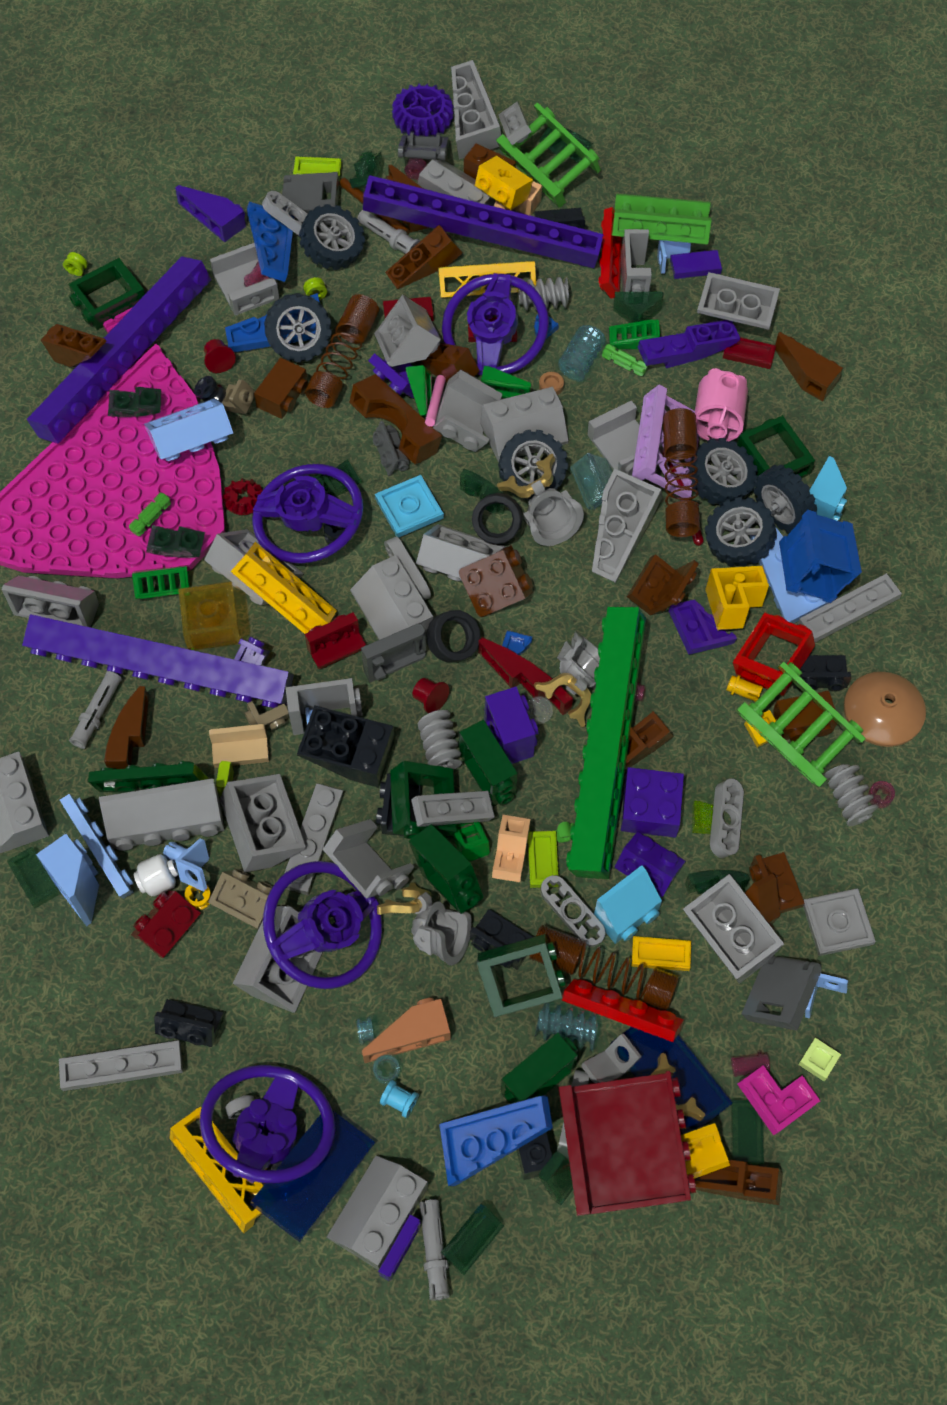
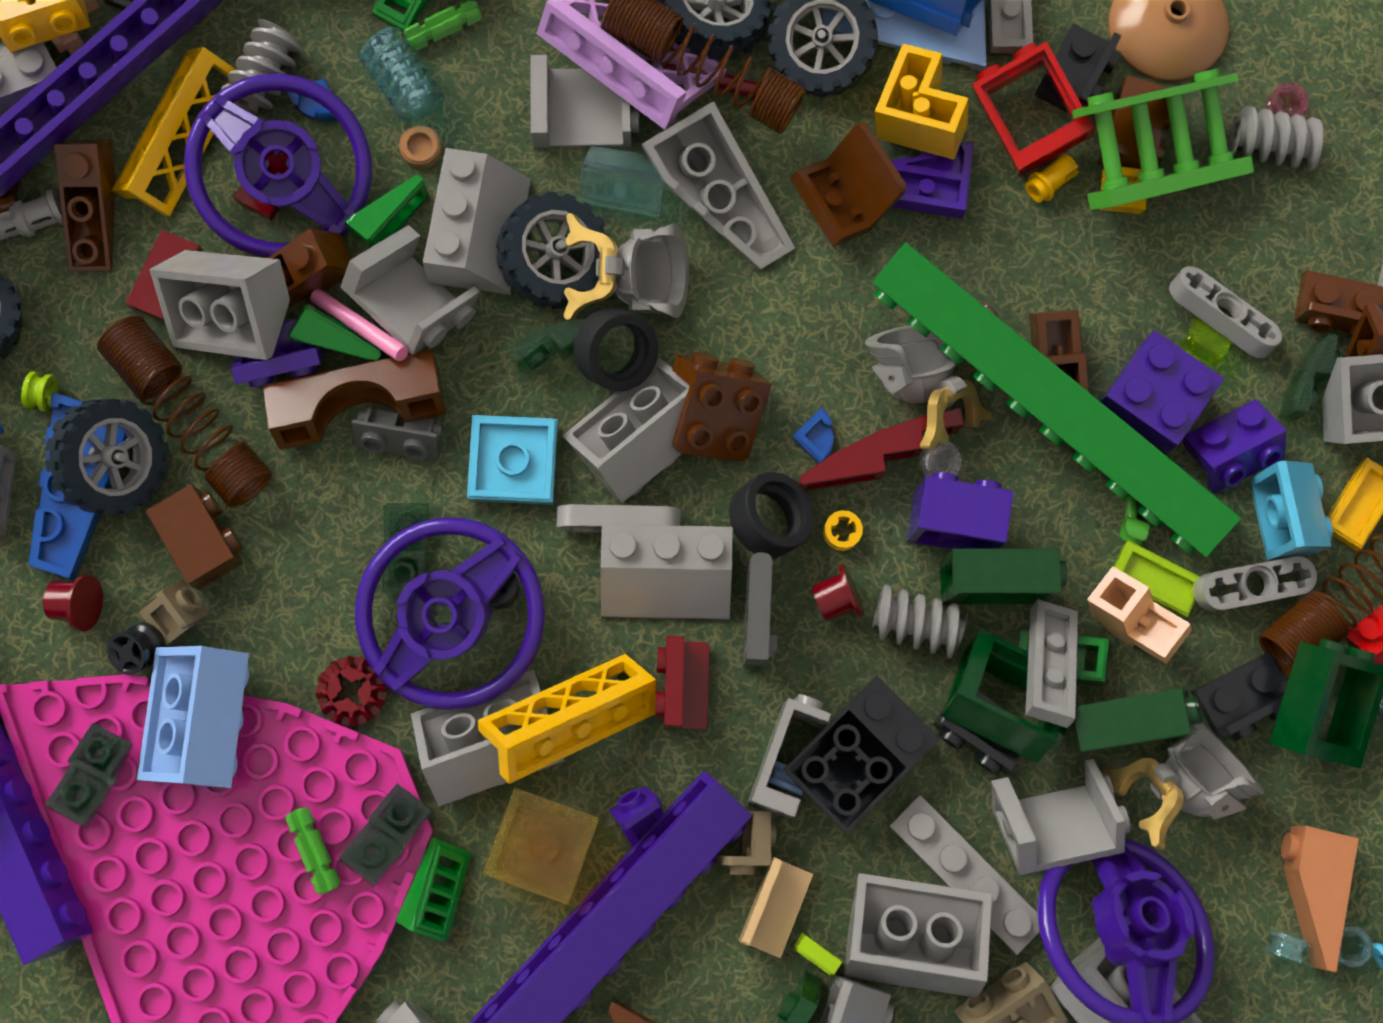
camera: 65 degrees left, 15 degrees up
(471, 674) = (832, 523): none -> yellow bush

